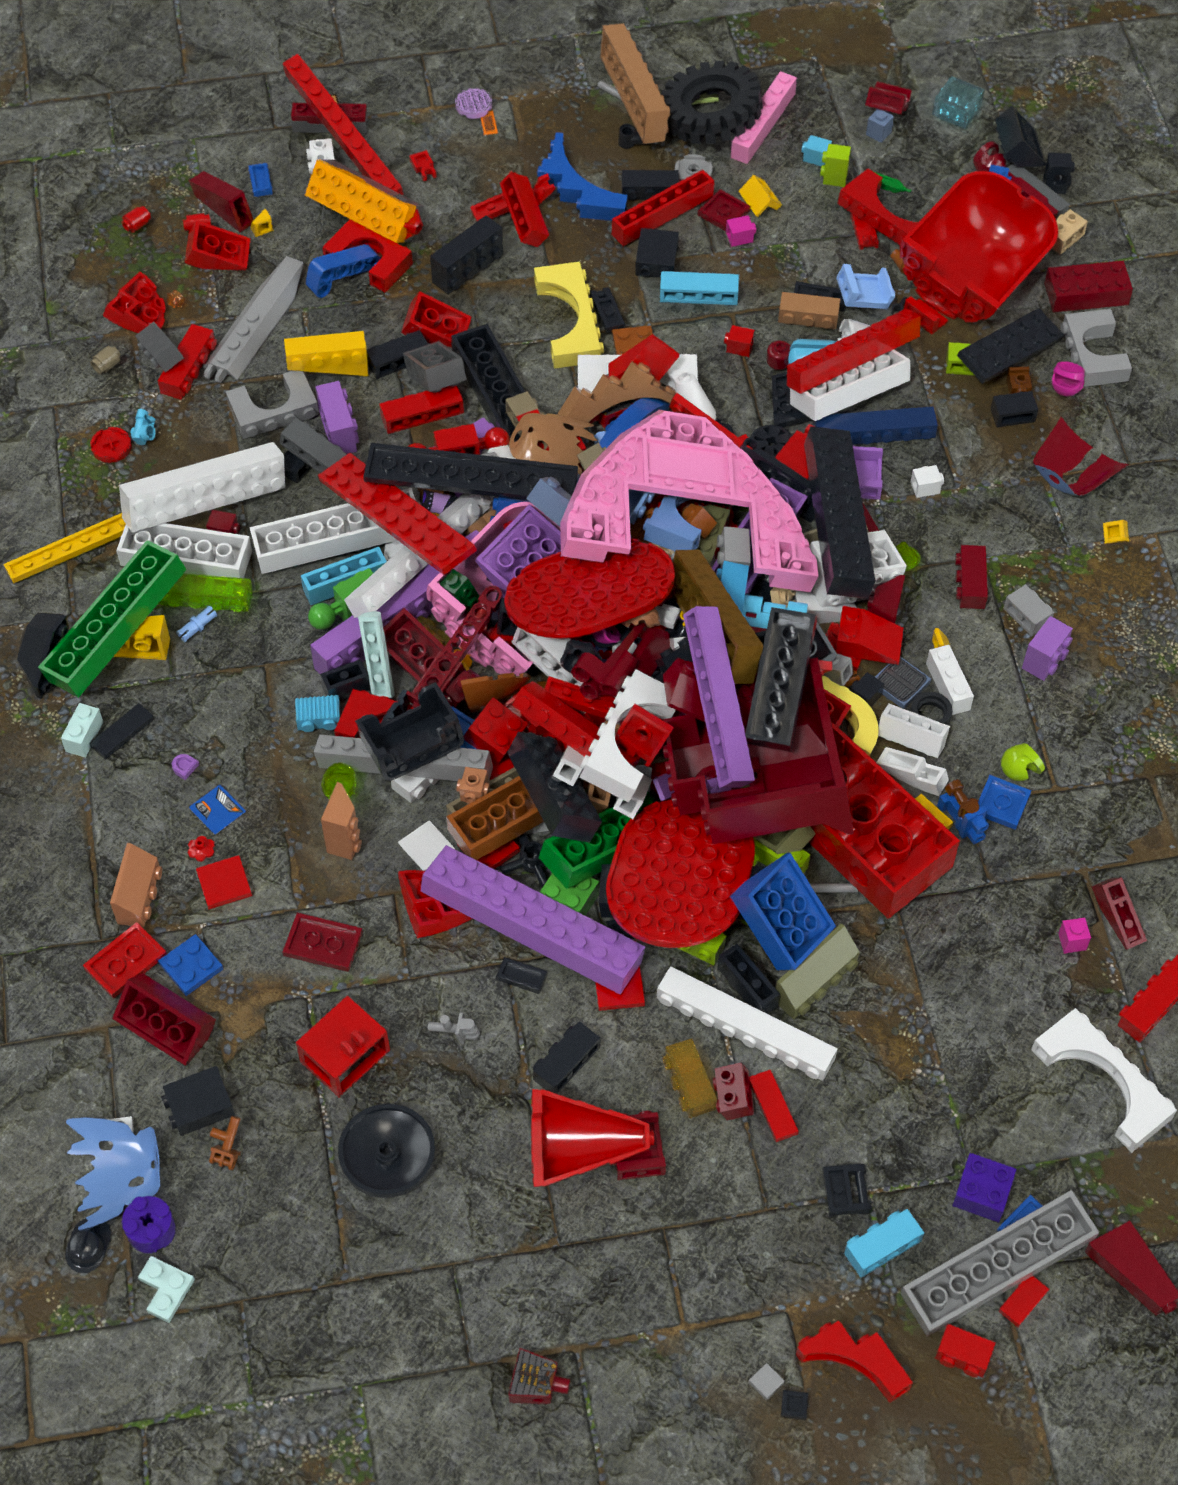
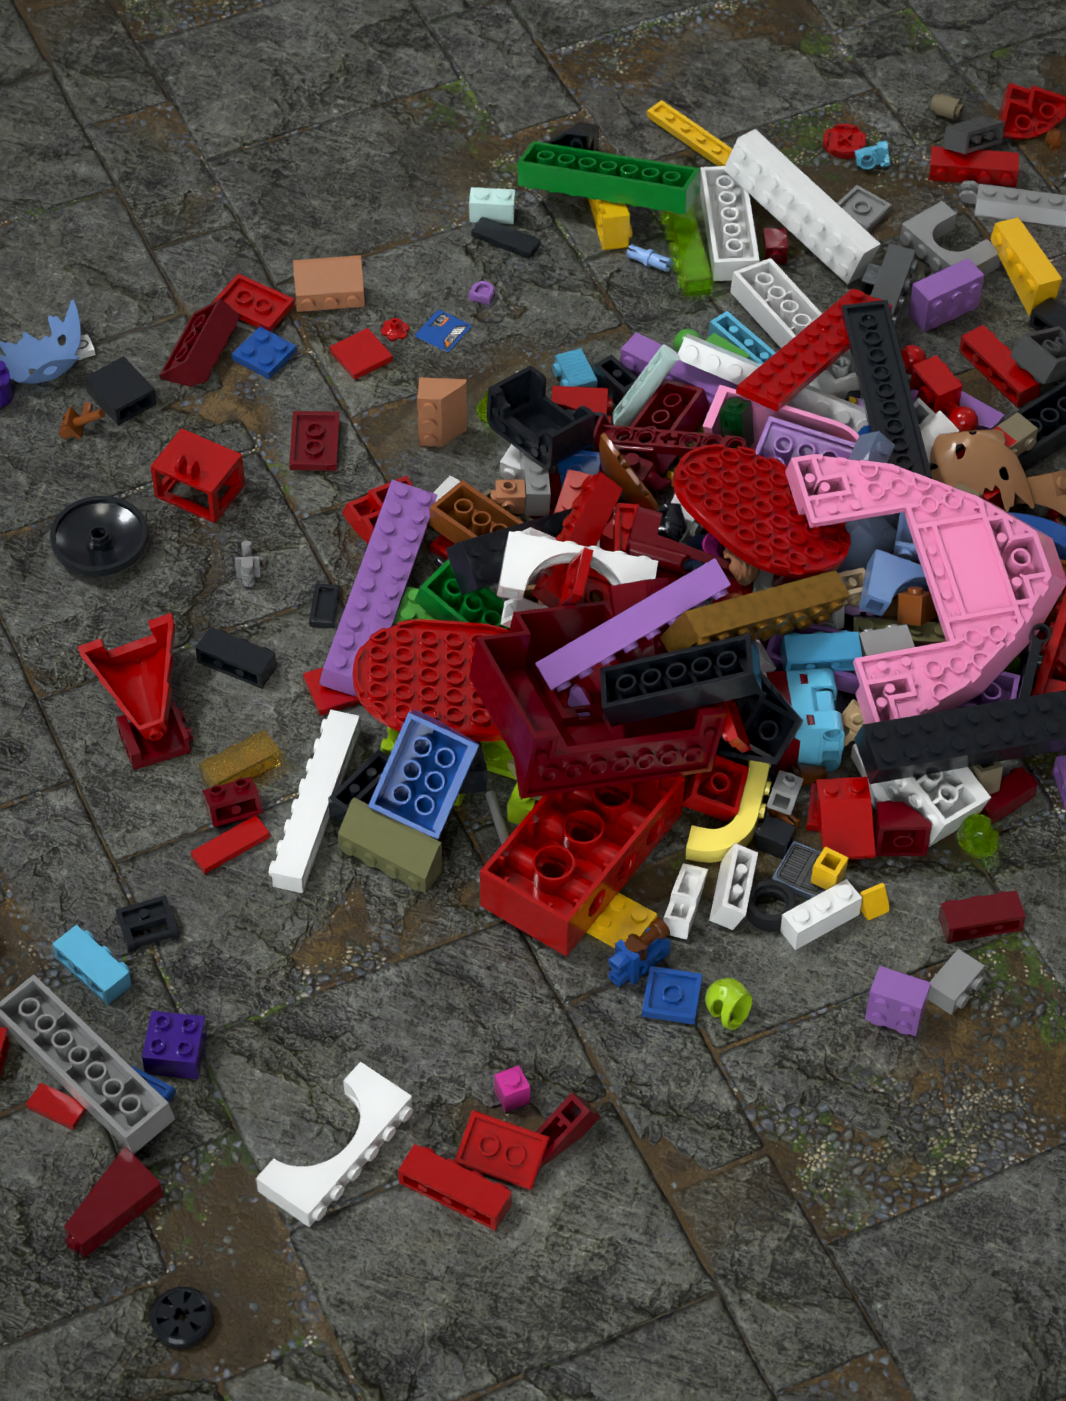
camera: 75 degrees right, 5 degrees down
(197, 450) = (865, 207): none -> light grey tile
(918, 658) = (829, 869): none -> yellow brick
(1130, 956) = (502, 1150): none -> red tile

